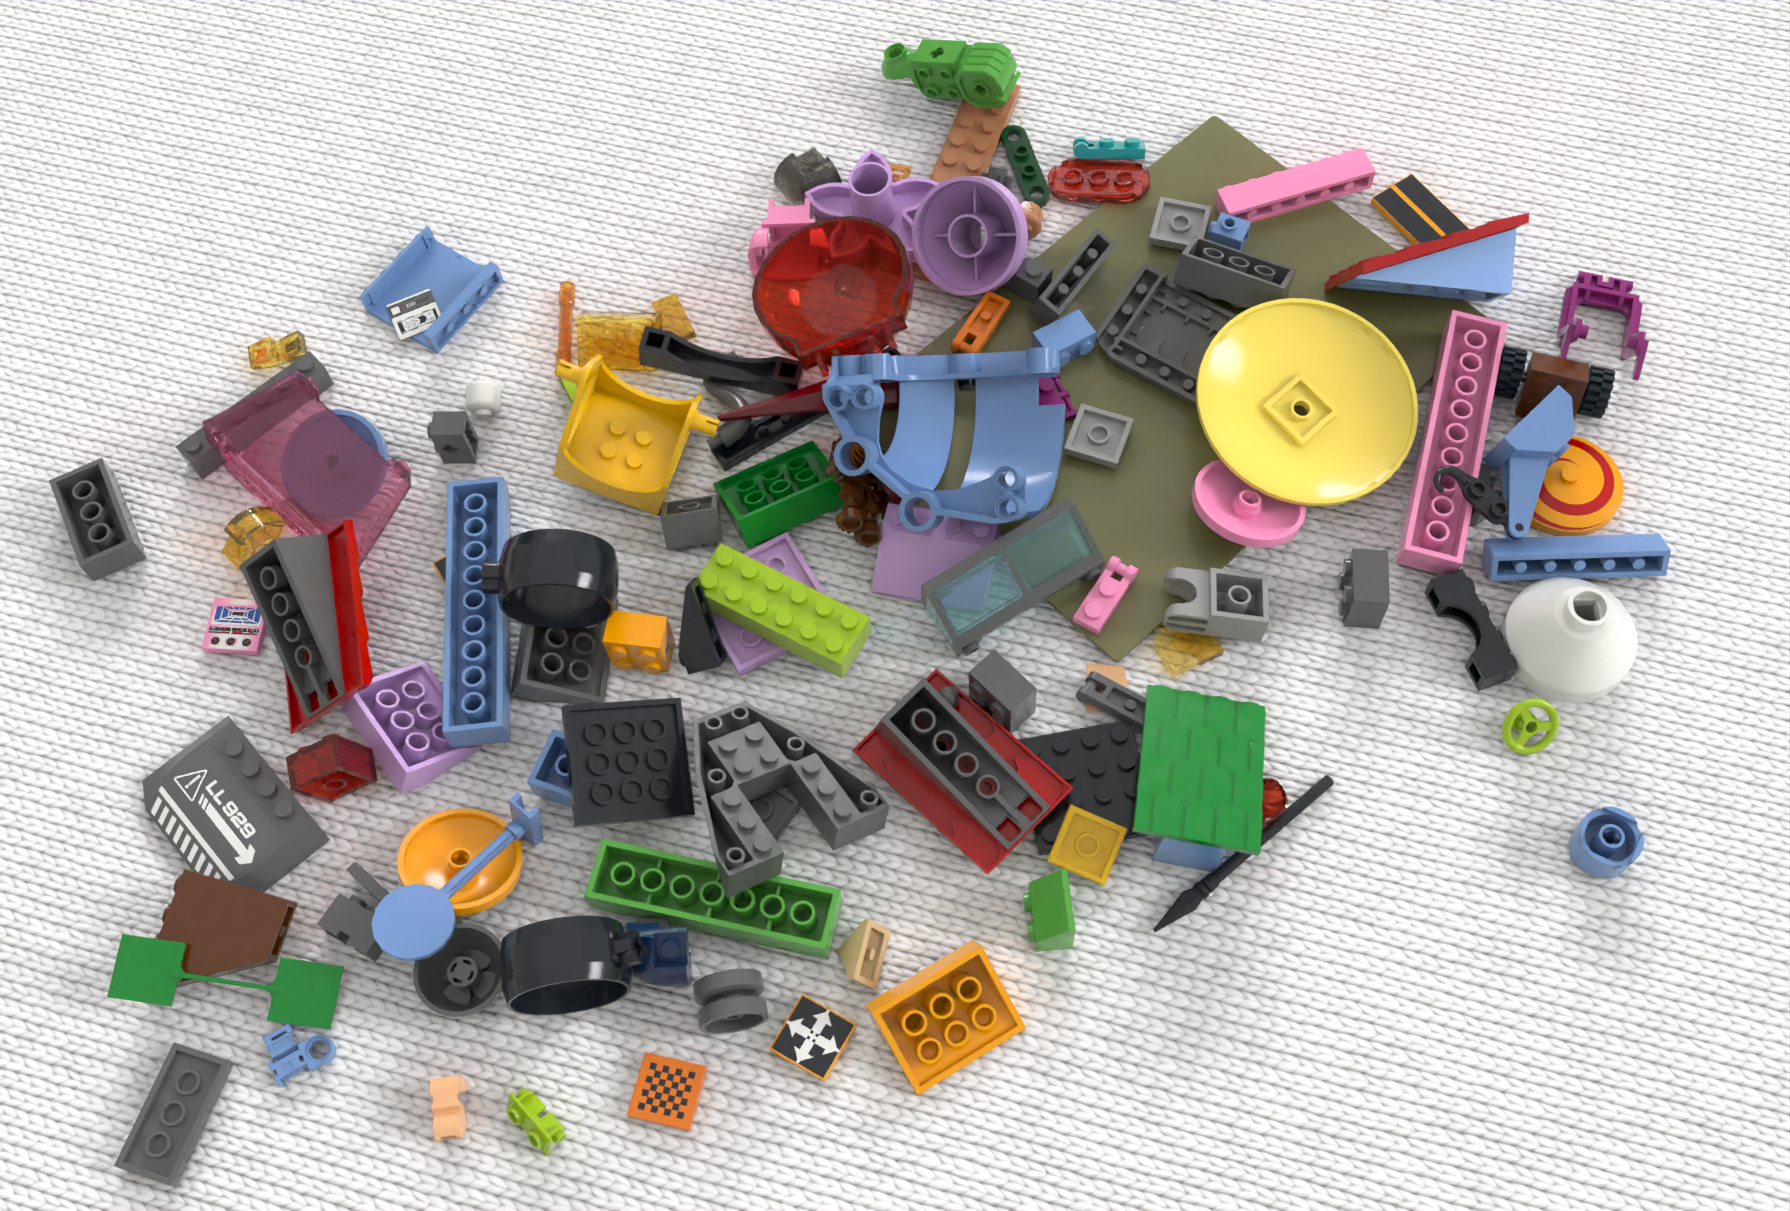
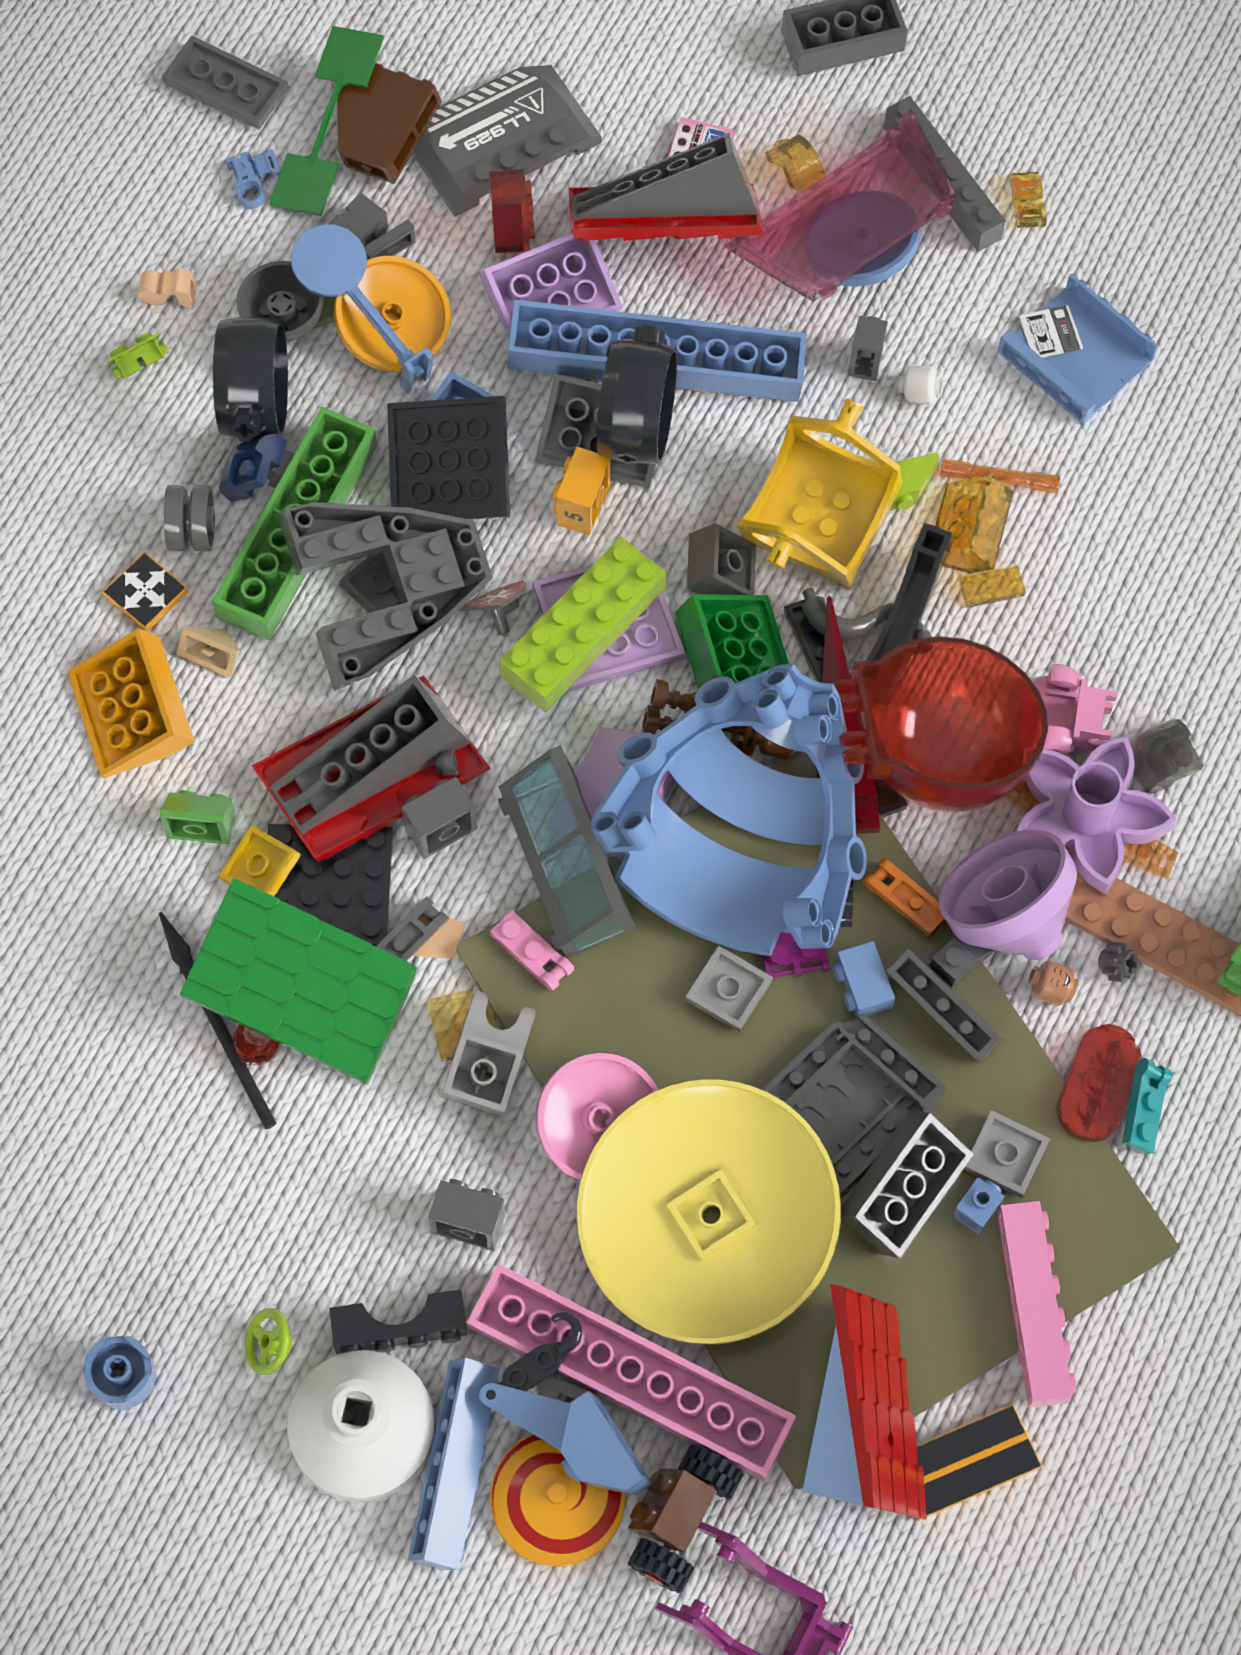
camera: 95 degrees right, 5 degrees up
(667, 1092) = (131, 464): orange tile -> none
(699, 638) = (575, 542): black slope -> none
(765, 691) = (499, 602): none -> shield
(1025, 165) = (1142, 1005): dark green plate -> none

